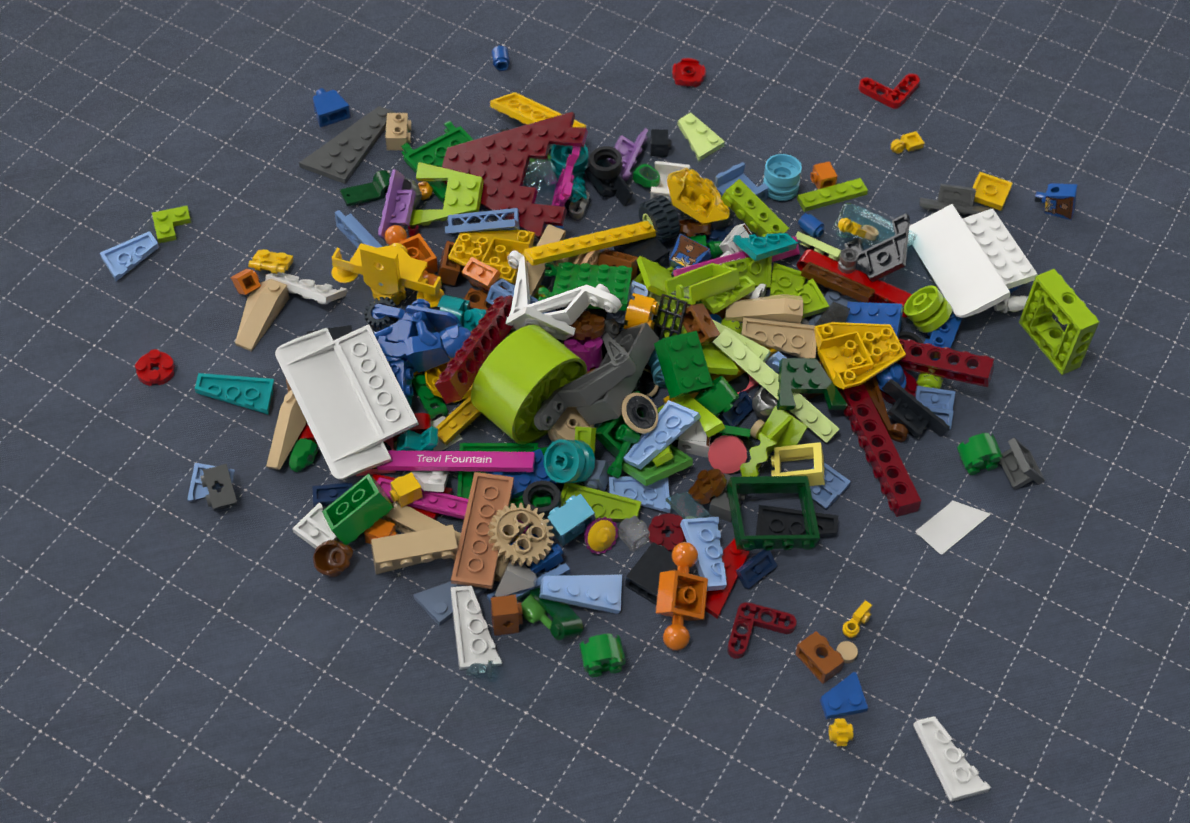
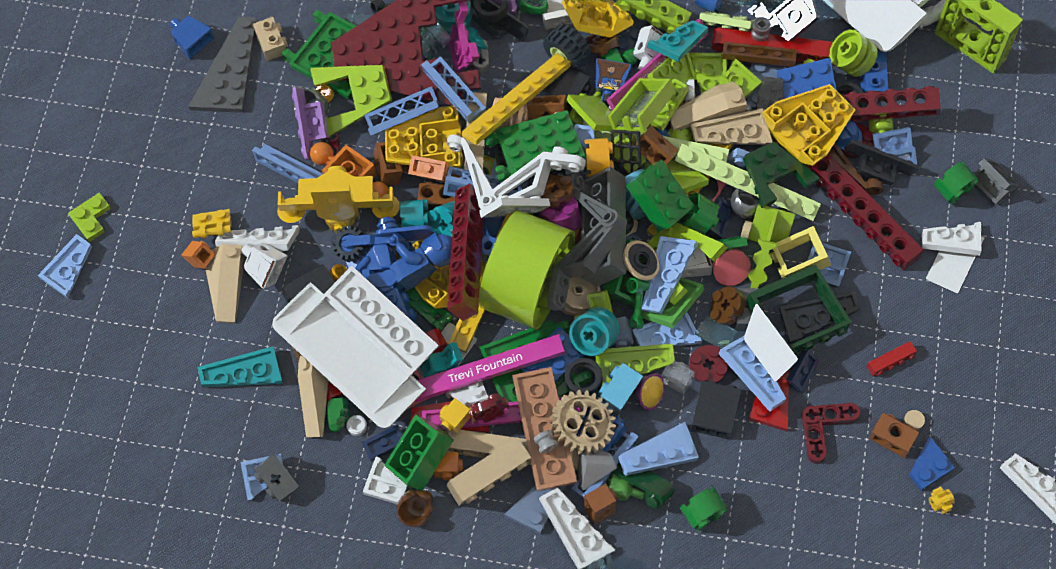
camera: 15 degrees left, 10 degrees up
(150, 360) = (155, 385): red plate -> none
(298, 307) = (263, 263): none -> white torso
(316, 472) = (356, 425): none -> white tile
(368, 191) = (279, 107): dark green door -> none
(438, 492) = (488, 409): none -> dark red plate
(477, 538) = (546, 442): none -> light grey wheel
(531, 217) = (451, 92): none -> medium blue fence
(681, 596) = (751, 425): orange brick -> none
(729, 530) = (768, 345): none -> white sticker
(848, 589) = (891, 359): none -> red piece
(860, 616) = (913, 382): yellow plate -> none
(960, 506) = (957, 239): none -> white wing

